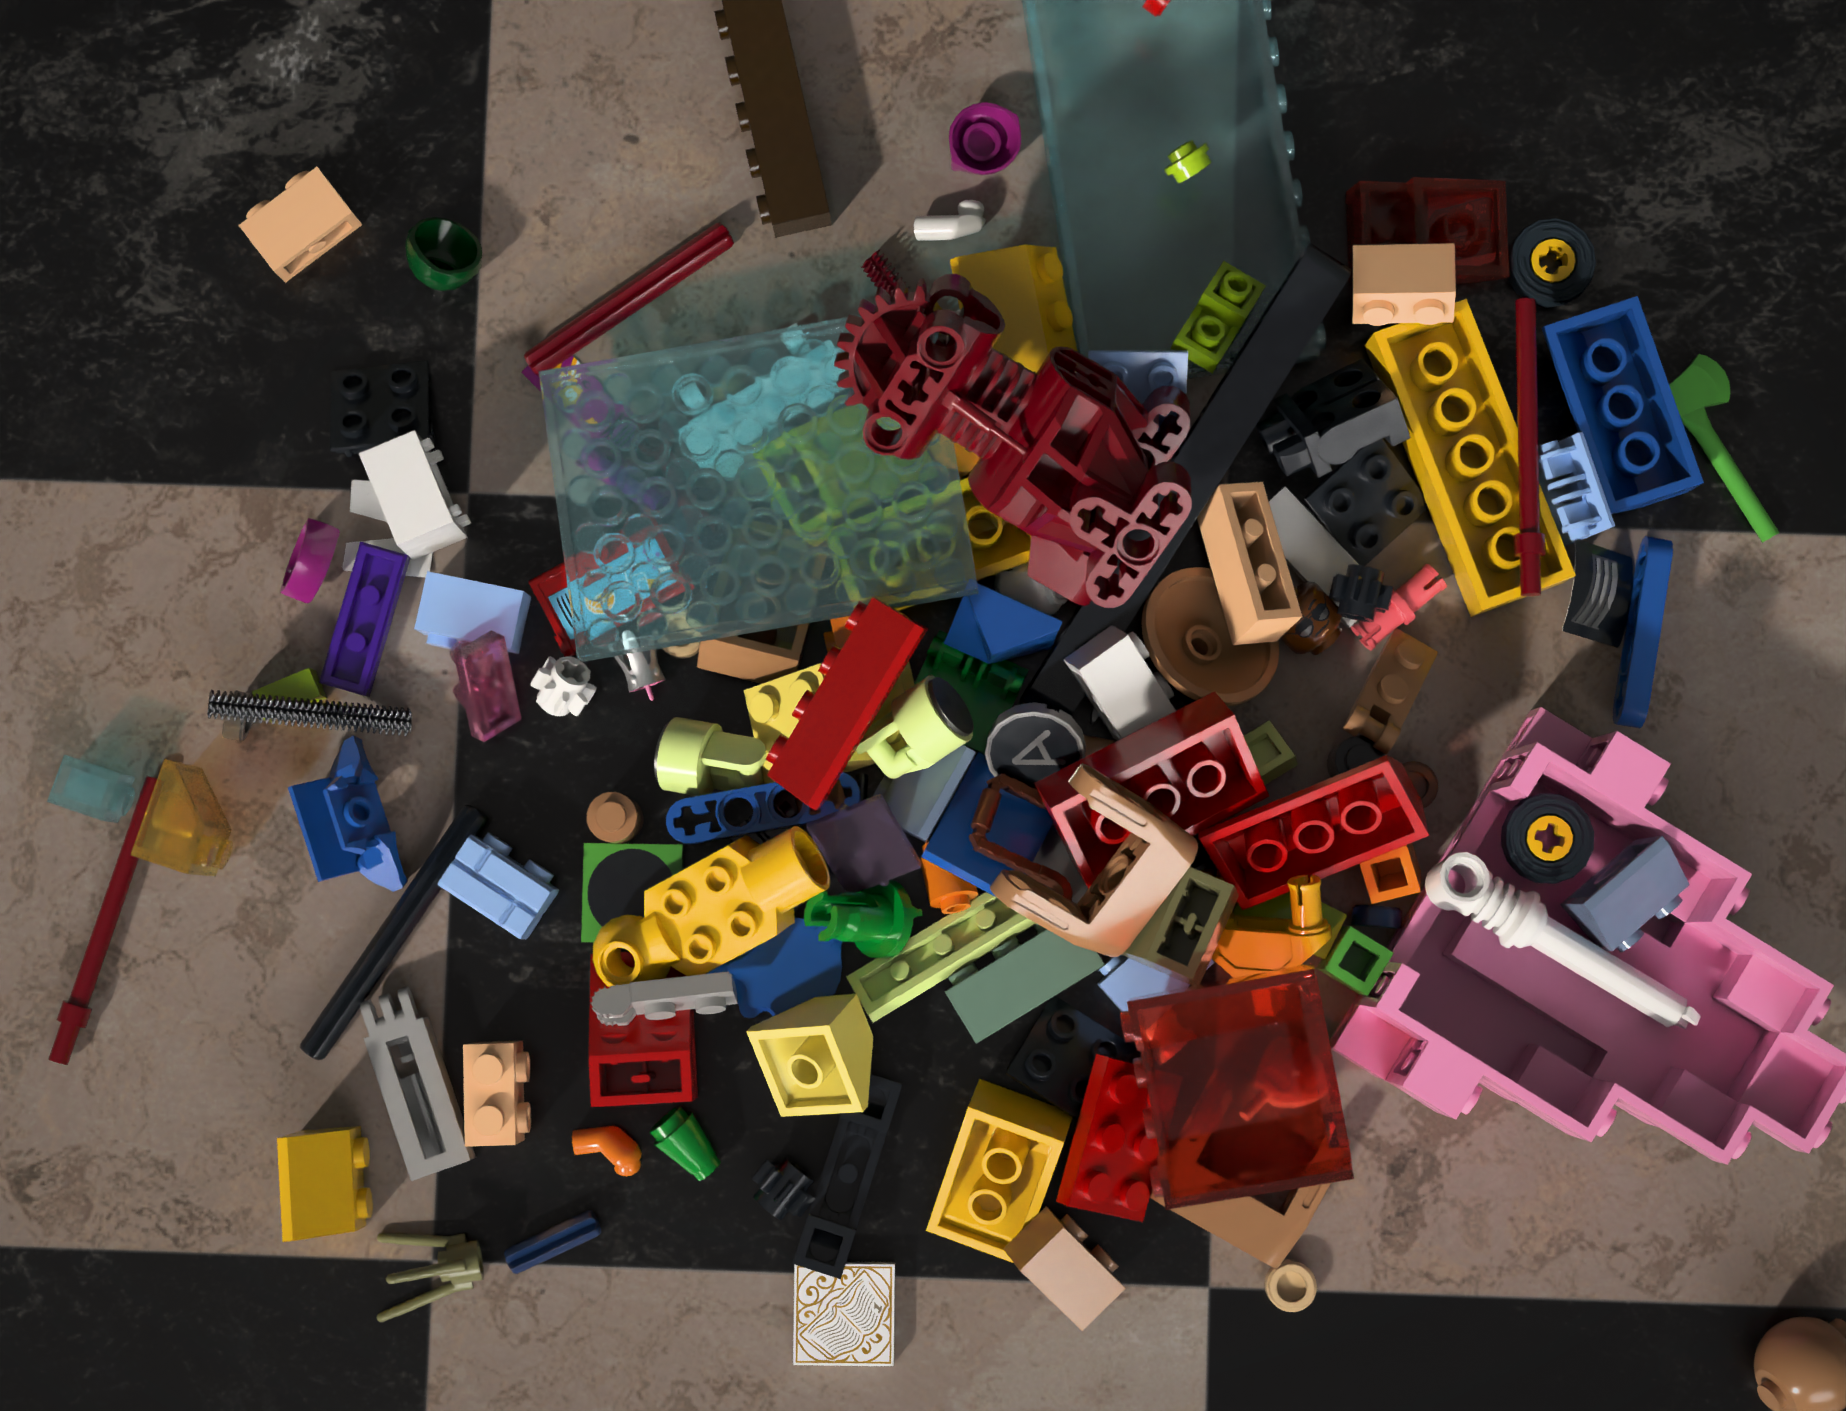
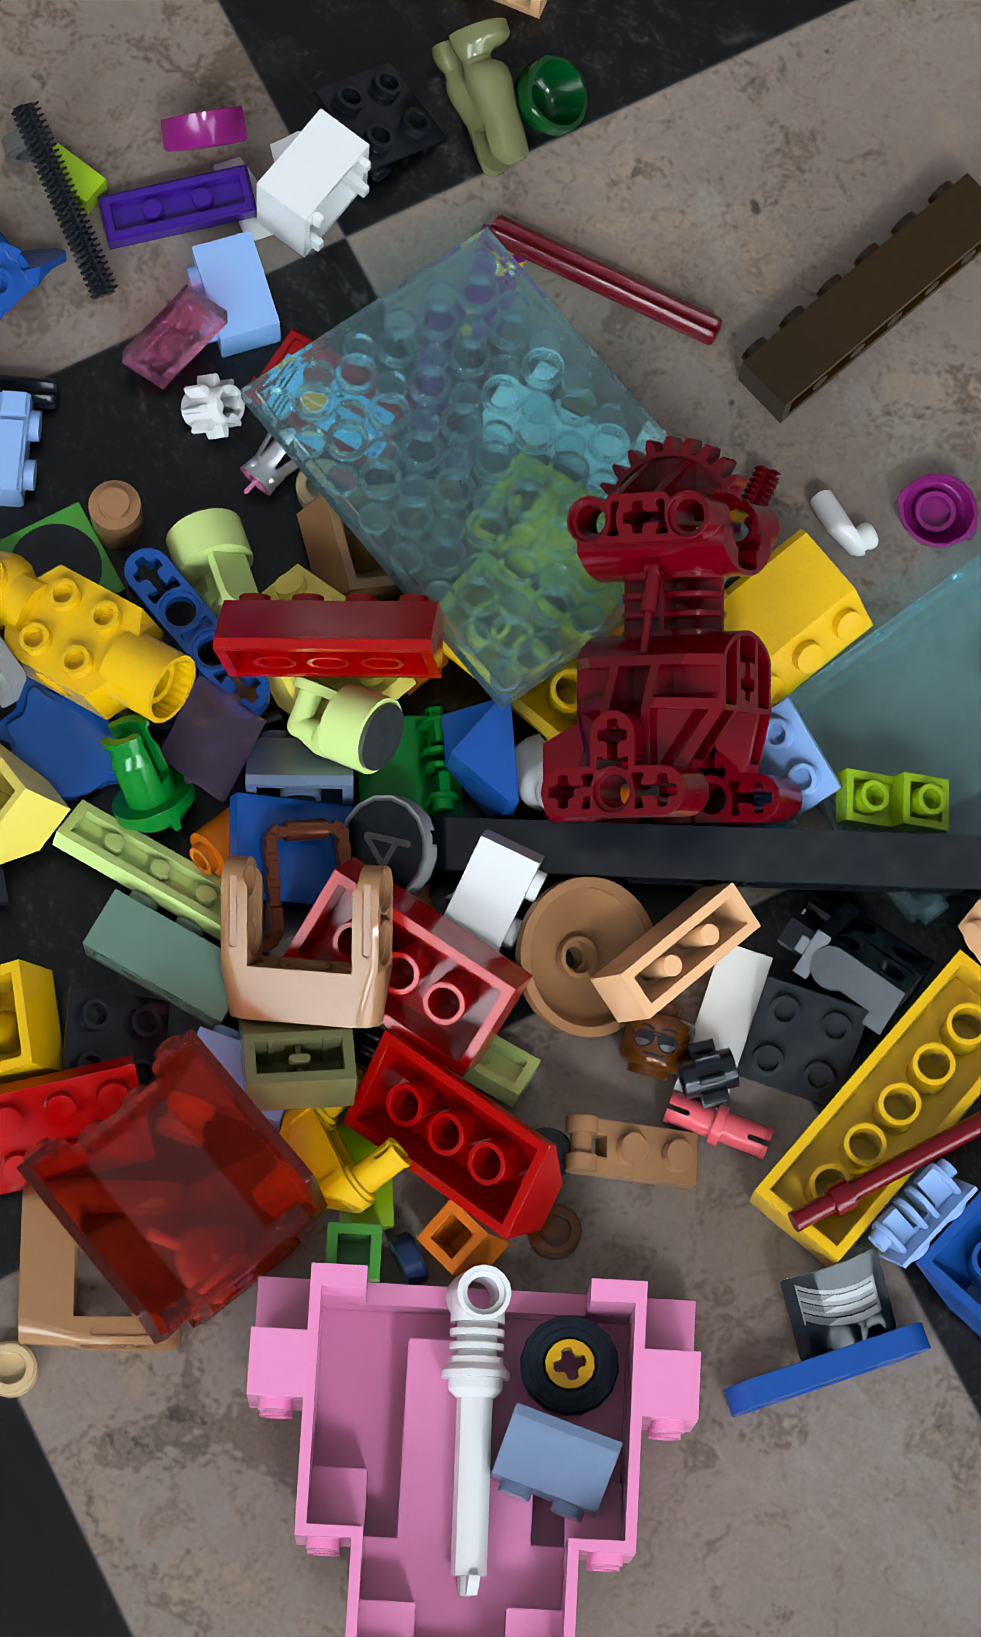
camera: 50 degrees right, 10 degrees down
(412, 308) = (484, 93): none -> olive piece

